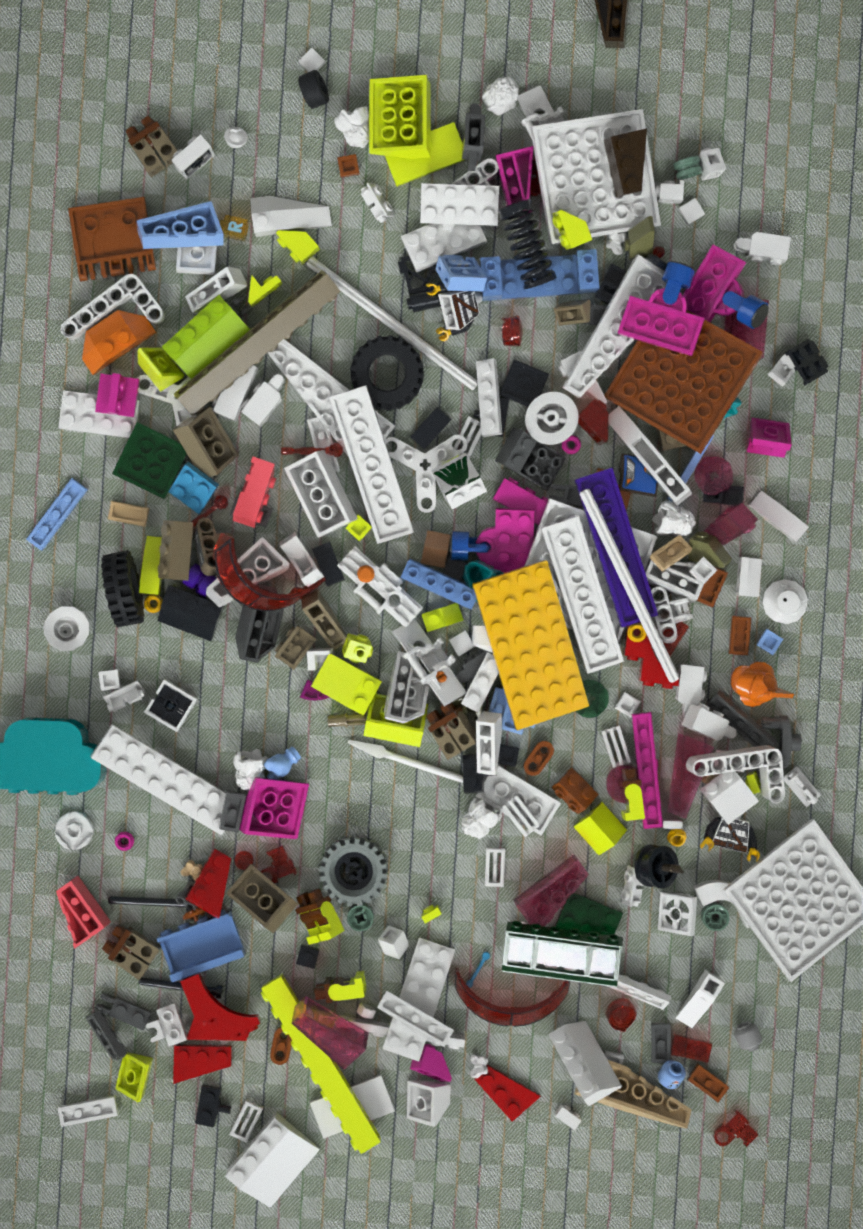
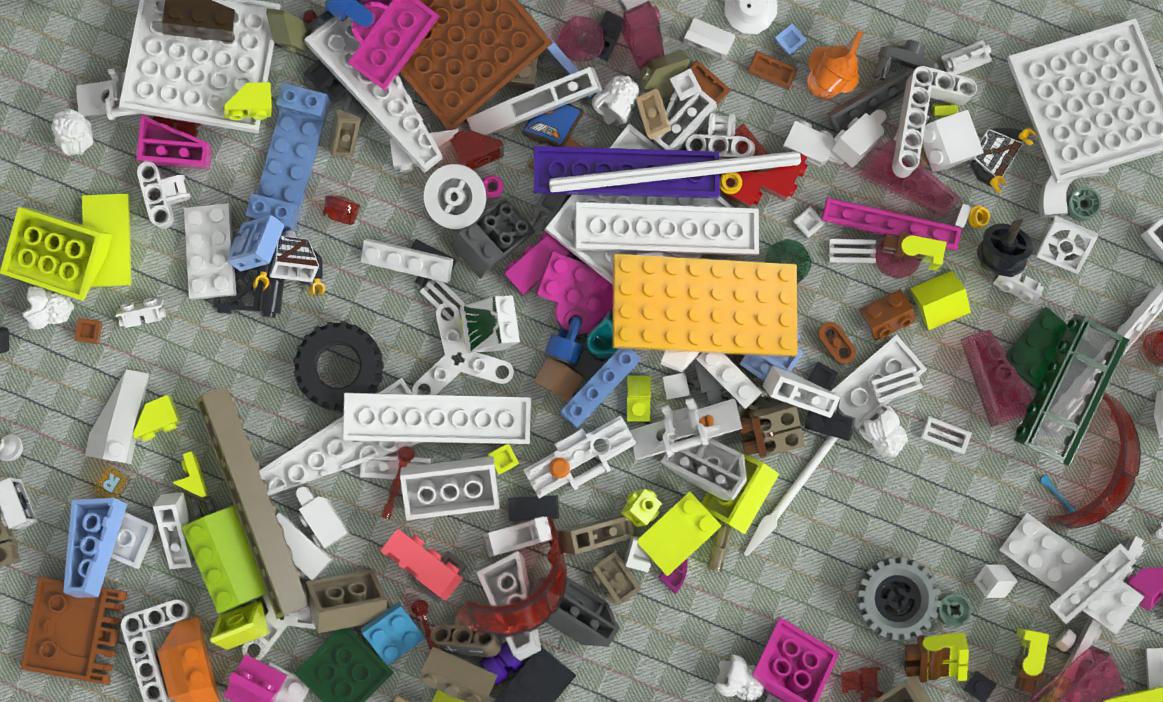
camera: 70 degrees left, 5 degrees down
(280, 764) = (746, 641): light blue animal -> none
(395, 325) = (288, 338): white axle -> none
(430, 913) = (975, 526): neon yellow plate -> none
(431, 427) = (418, 338): black slope -> none
(459, 204) = (177, 219): white plate -> none
(473, 136) = (106, 178): dark grey hinge -> none
(523, 383) = (404, 217): black tile -> none
(540, 273) = (287, 153): black piece -> none
(615, 242) = (281, 61): white piece -> none

